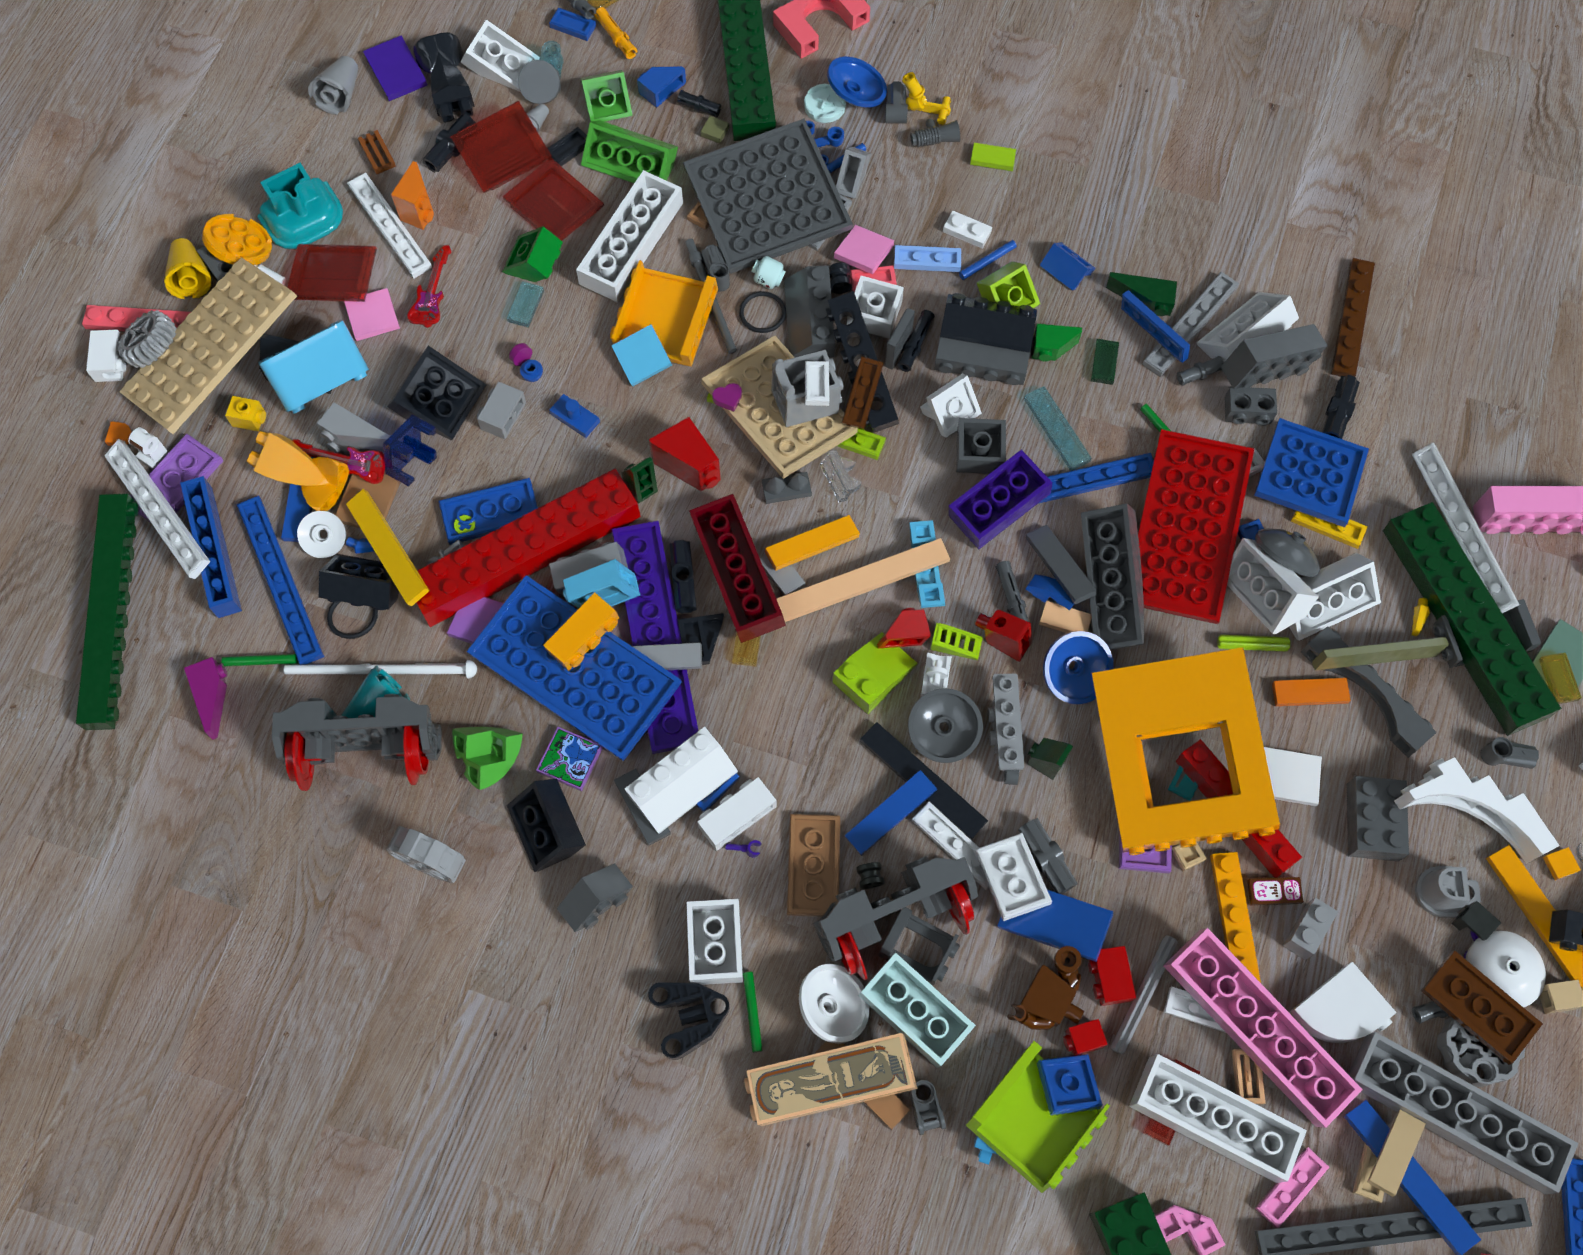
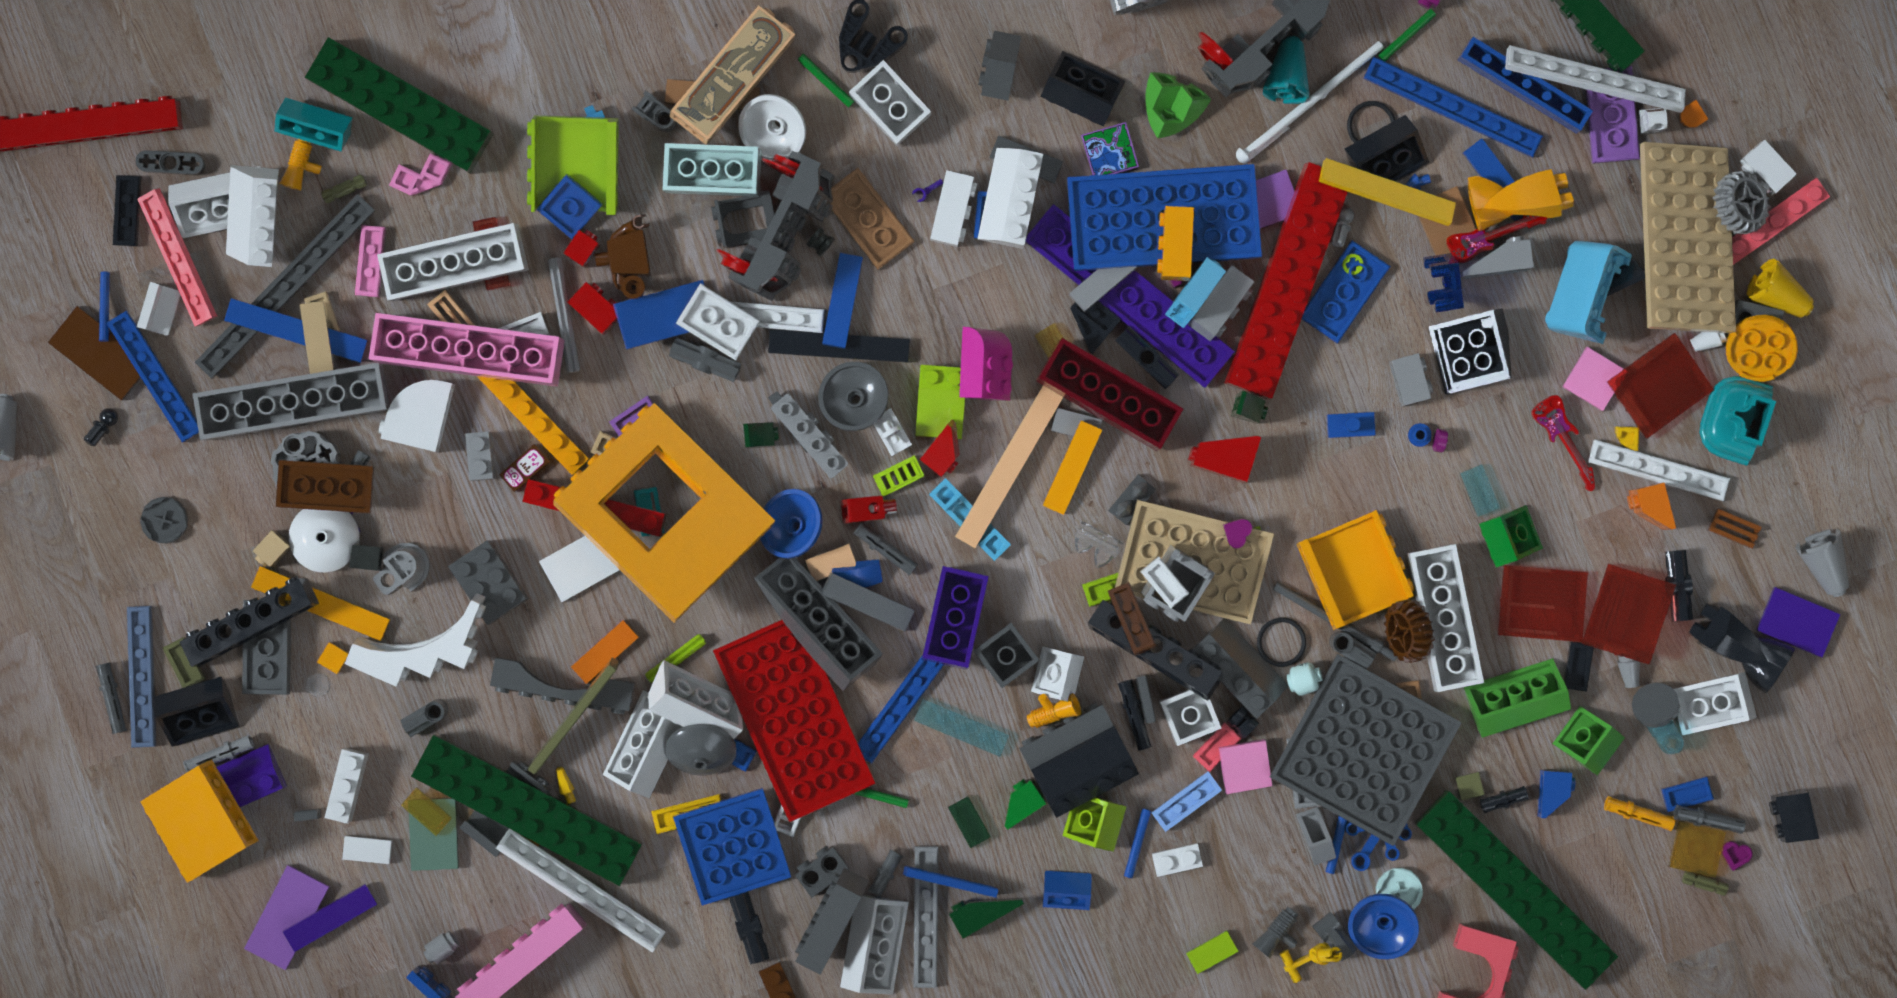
camera: 140 degrees right, 20 degrees up
(245, 413) = (1607, 212): yellow brick -> none
(310, 538) = (1451, 155): white dish -> none
(387, 260) = (1628, 437): none -> yellow tile
(641, 355) = (1341, 518): medium azure tile -> none
(664, 241) = (1409, 631): none -> reddish brown gear
(816, 664) = (985, 365): none -> dark pink brick
(980, 384) = (1053, 711): none -> light orange piece

